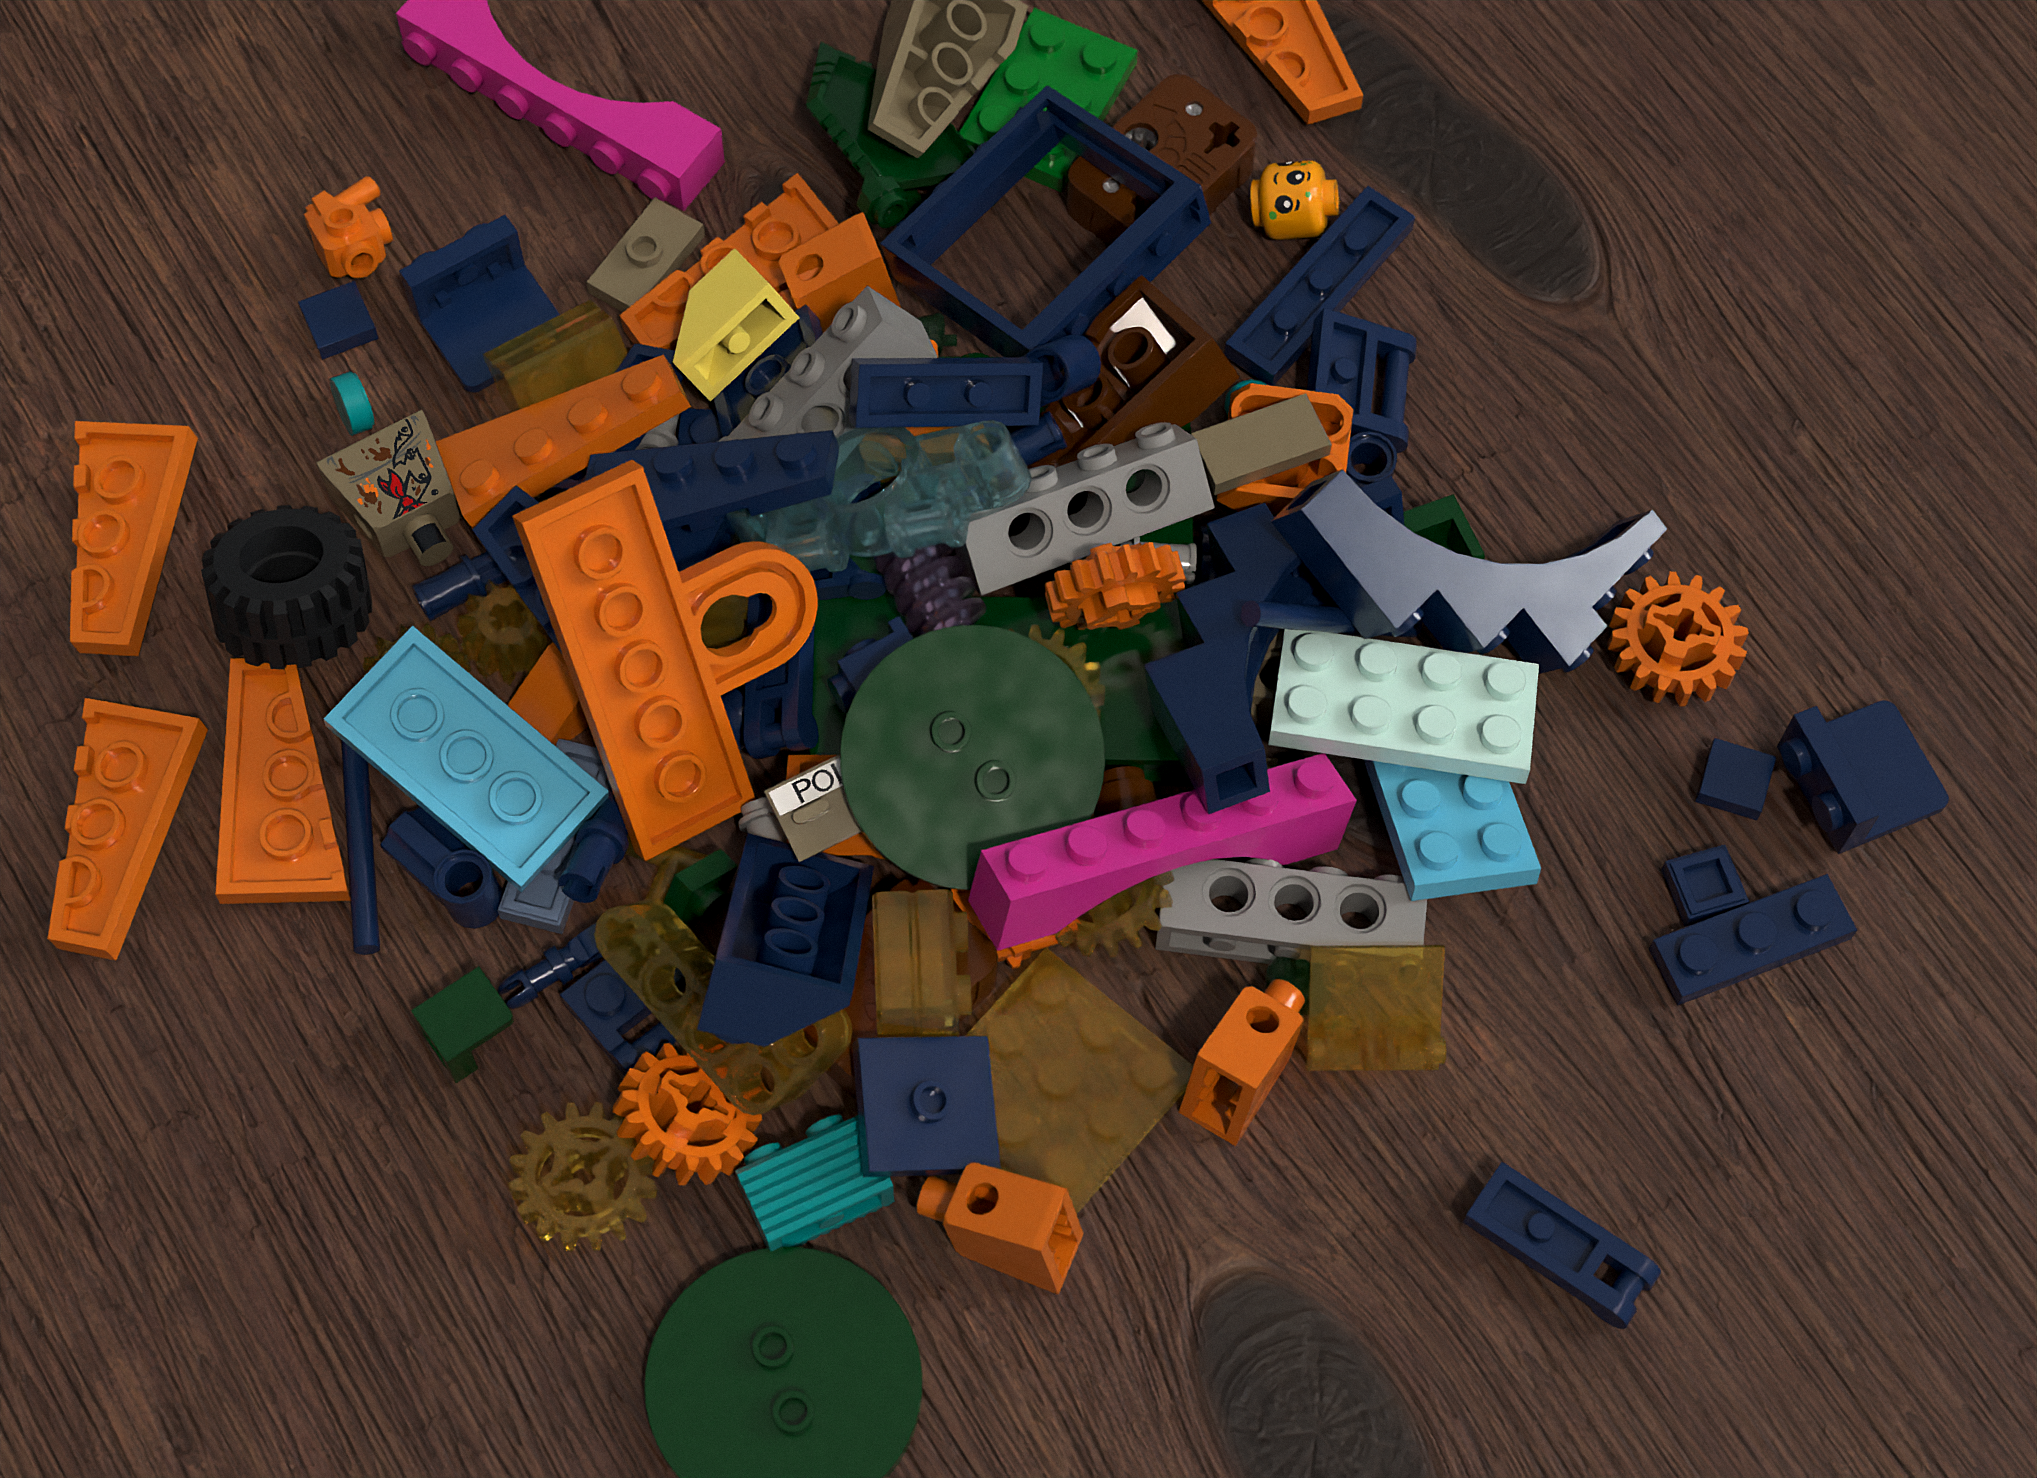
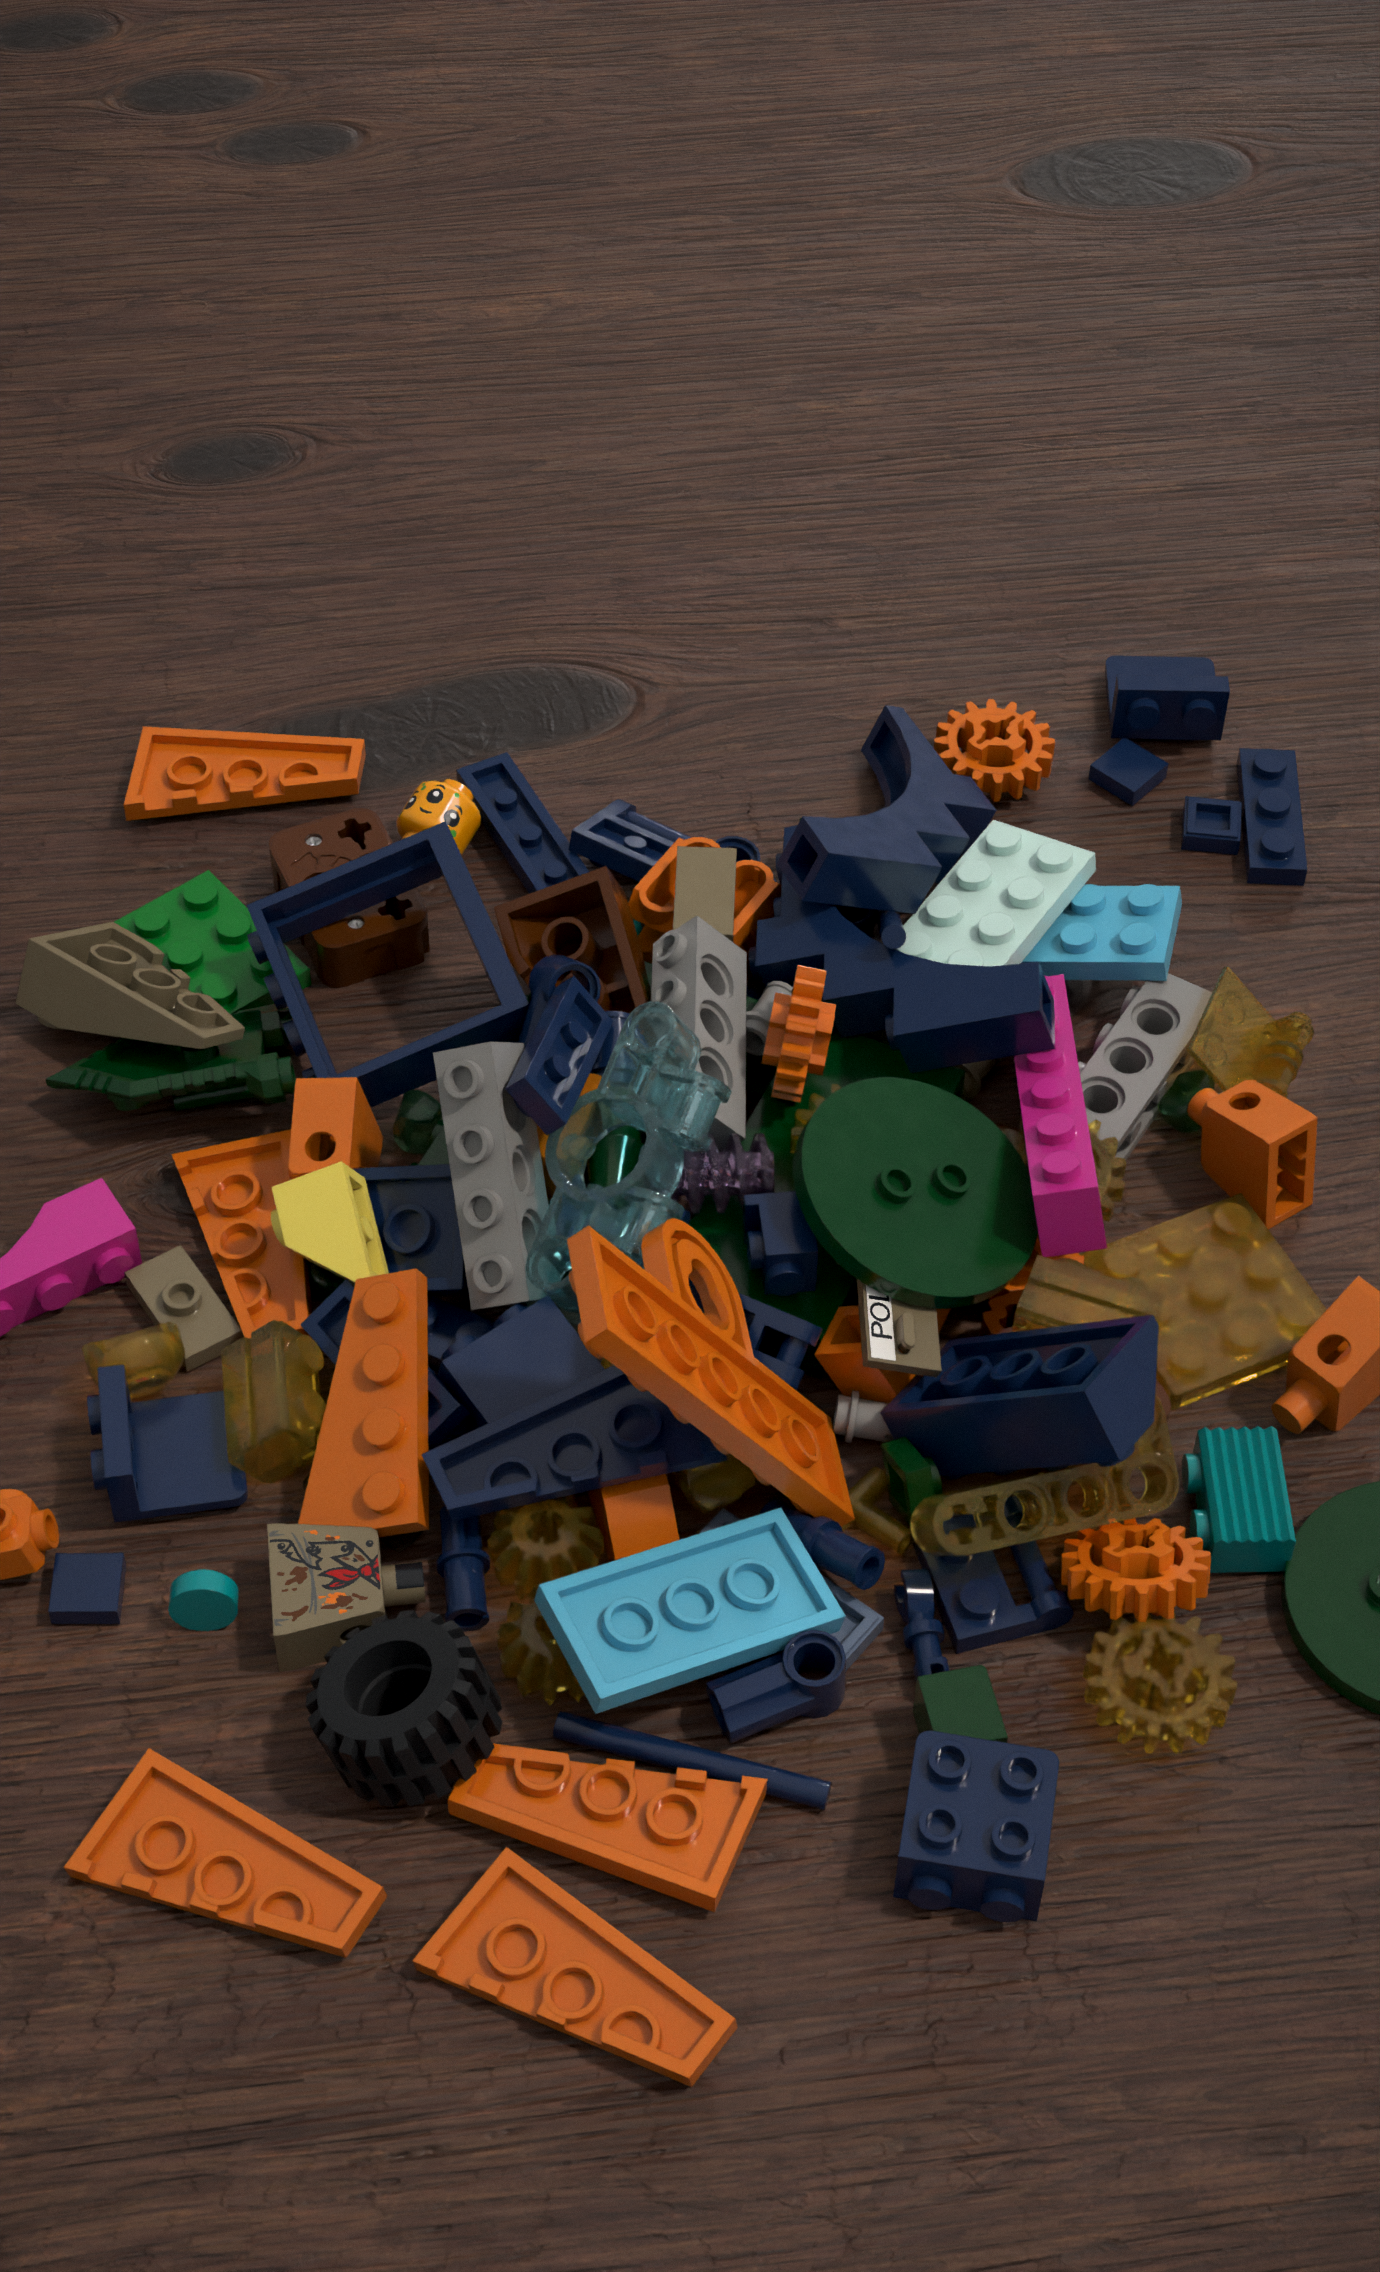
camera: 65 degrees left, 15 degrees down
(357, 1067) = (977, 1826): none -> dark blue bracket
(560, 243) = (149, 1357): none -> clear yellow hair
(715, 478) = (524, 1307): dark blue wing -> none
(924, 1105) = (1219, 1373): dark blue plate -> none

